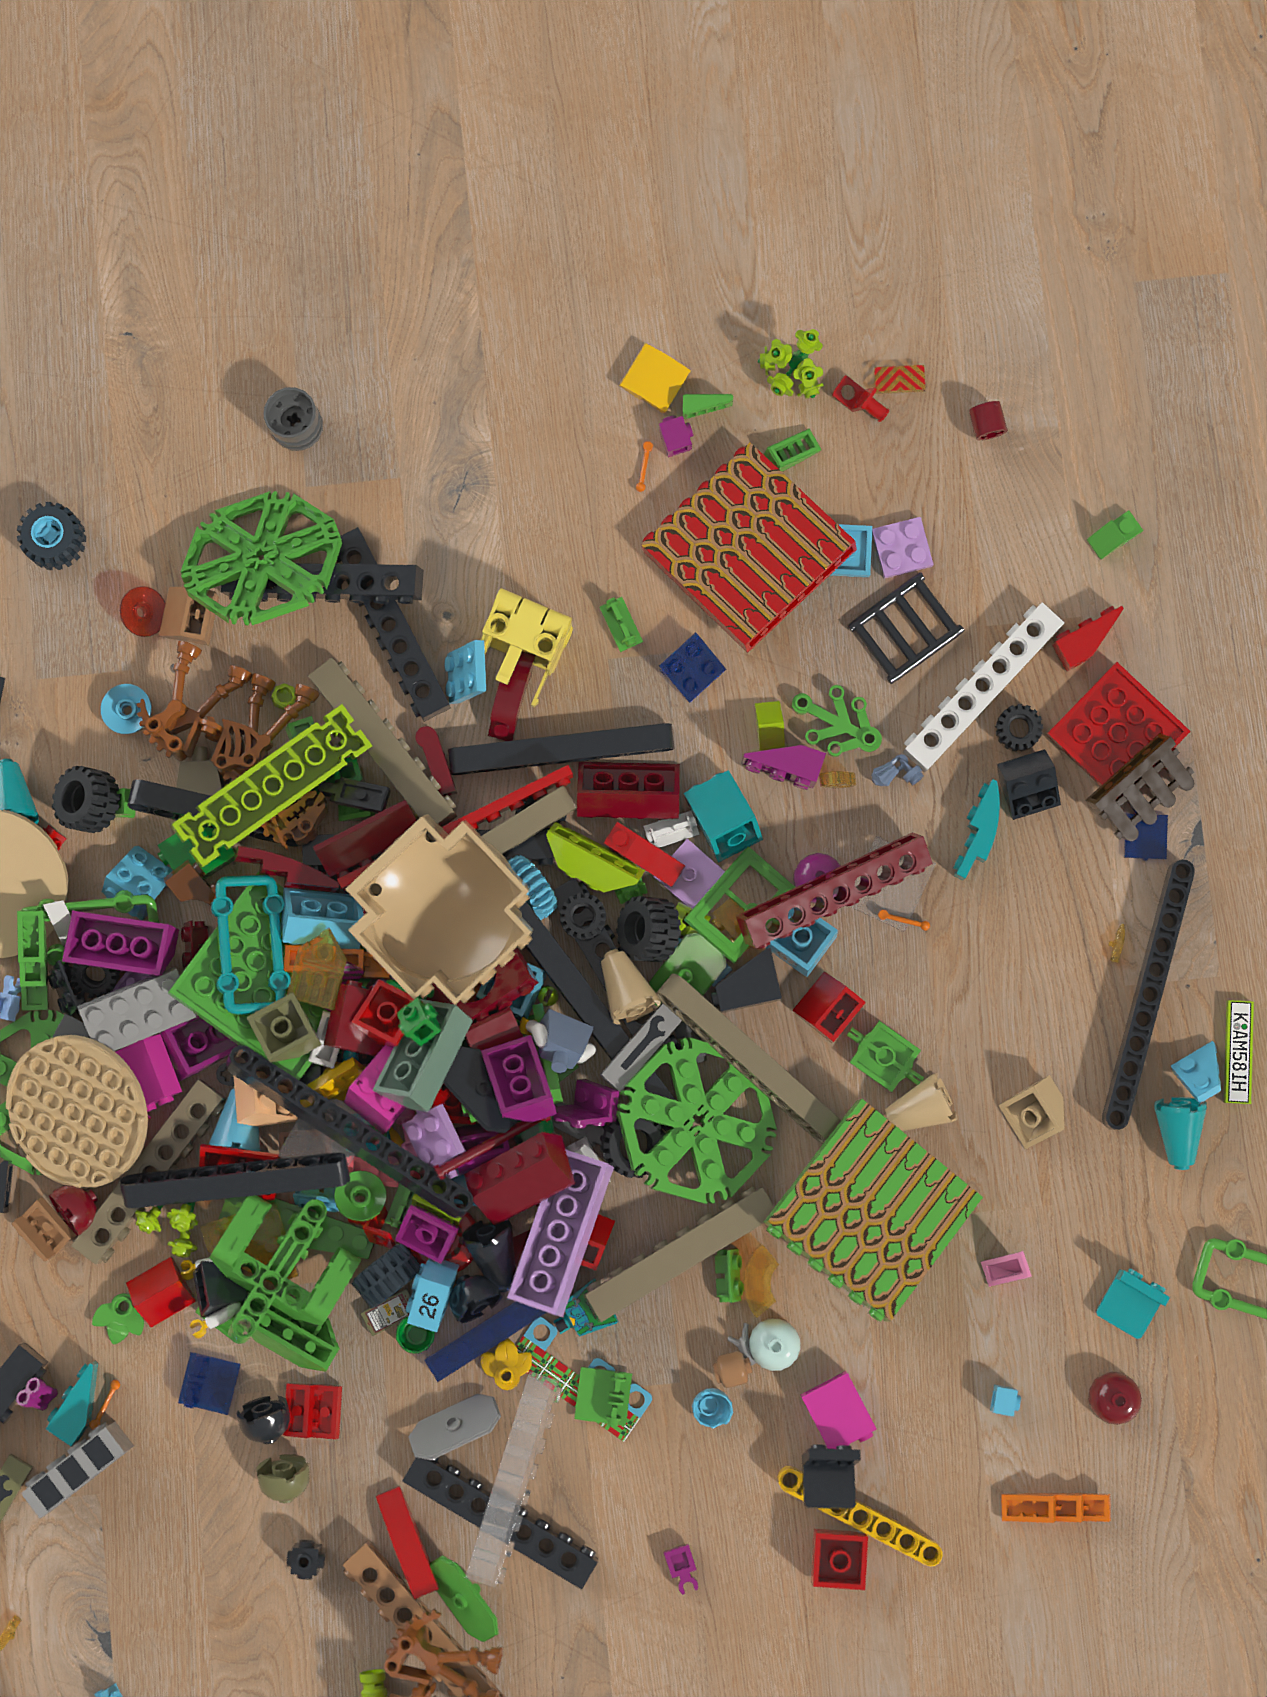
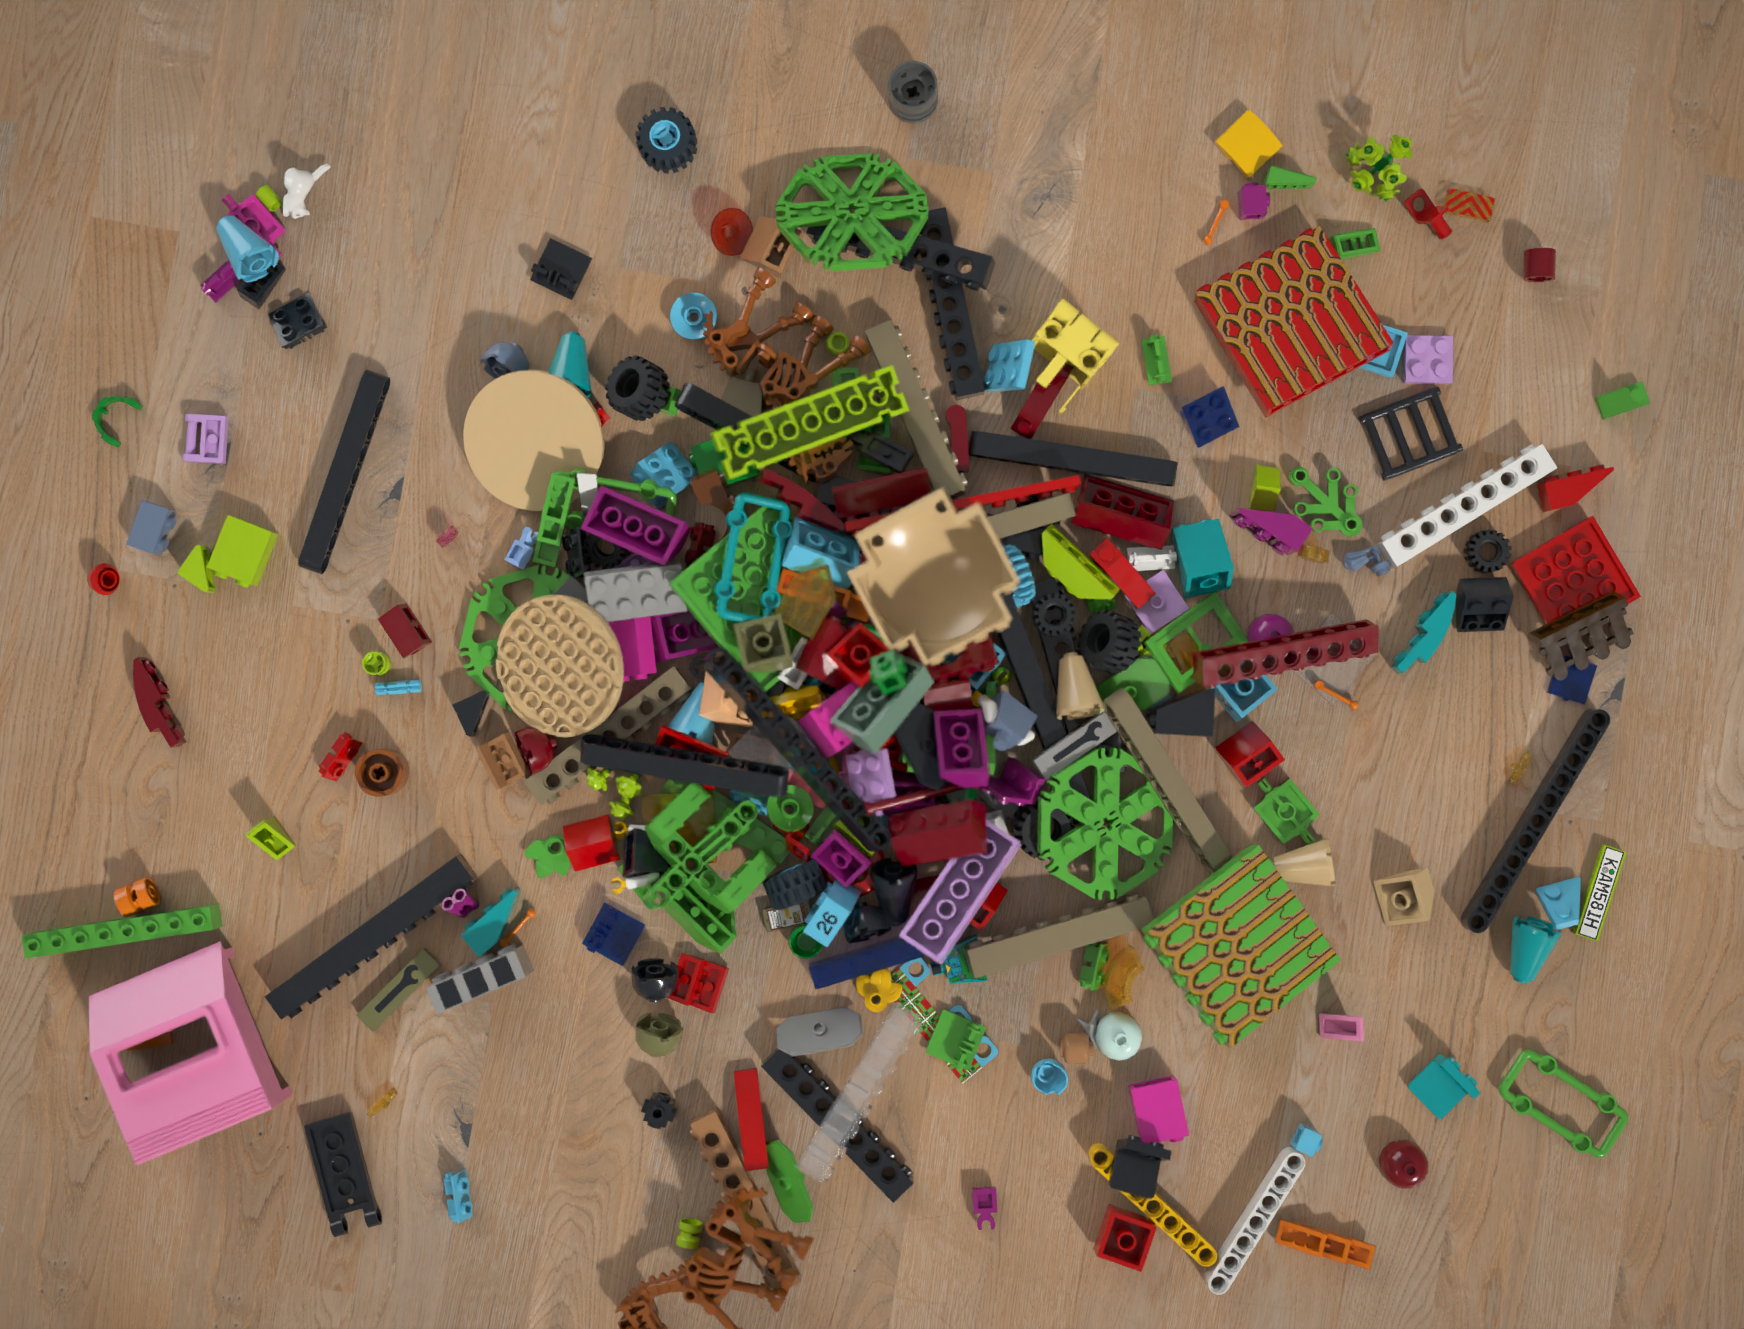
camera: 10 degrees right, 5 degrees up
(975, 1515) = (1254, 1232): none -> white beam

